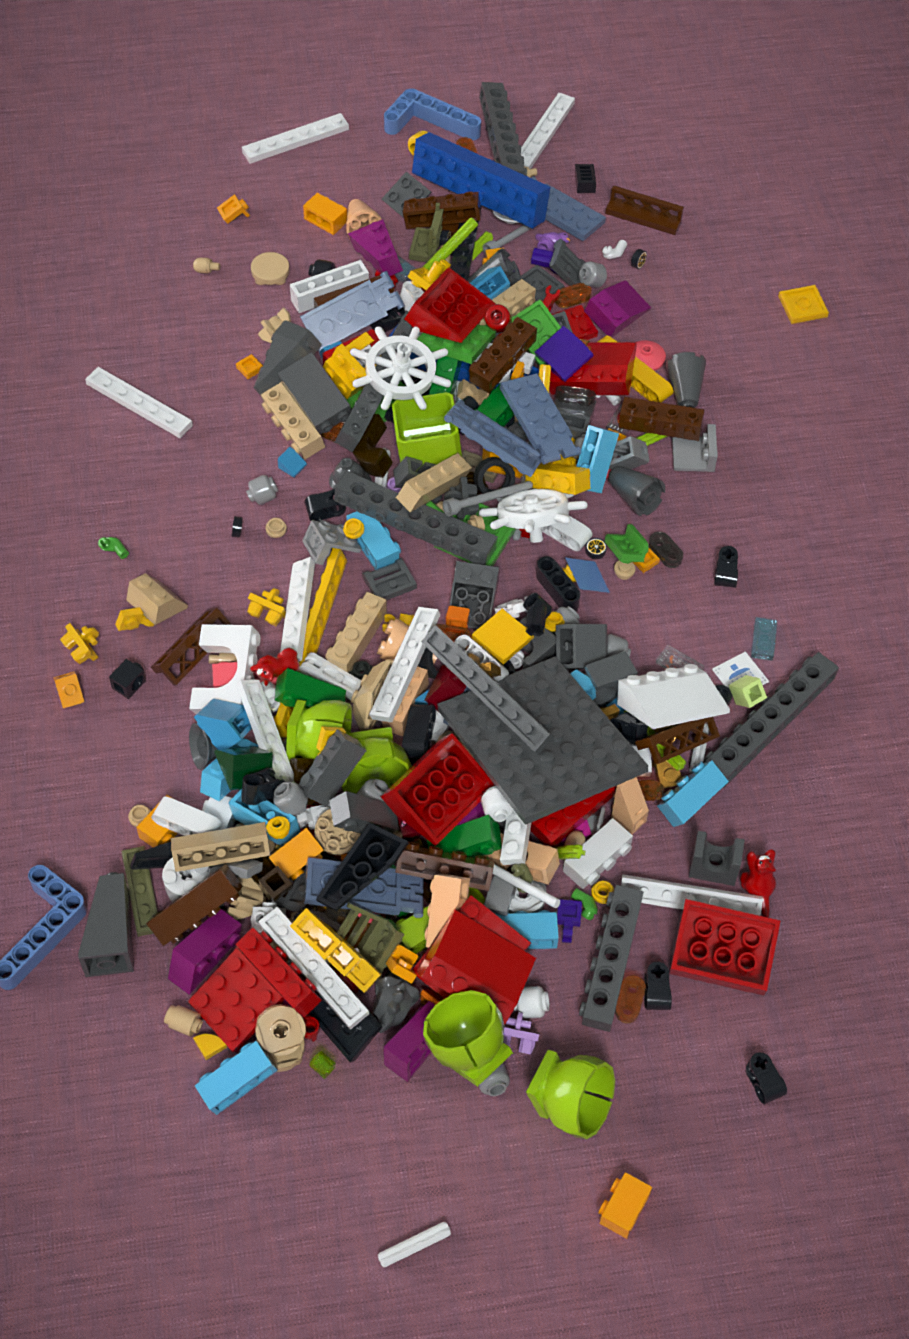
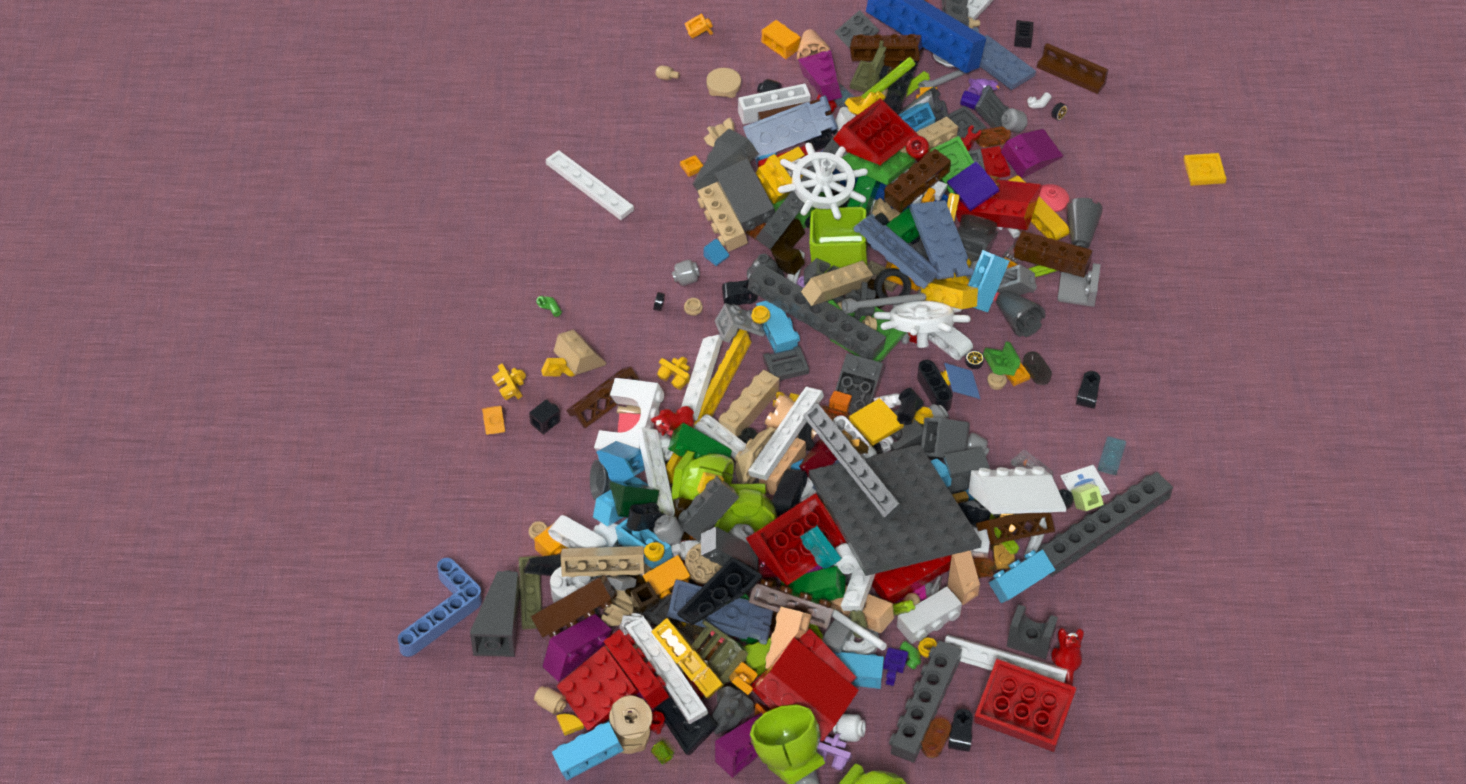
camera: 10 degrees right, 5 degrees down
(467, 796) = (820, 547): none -> teal plate

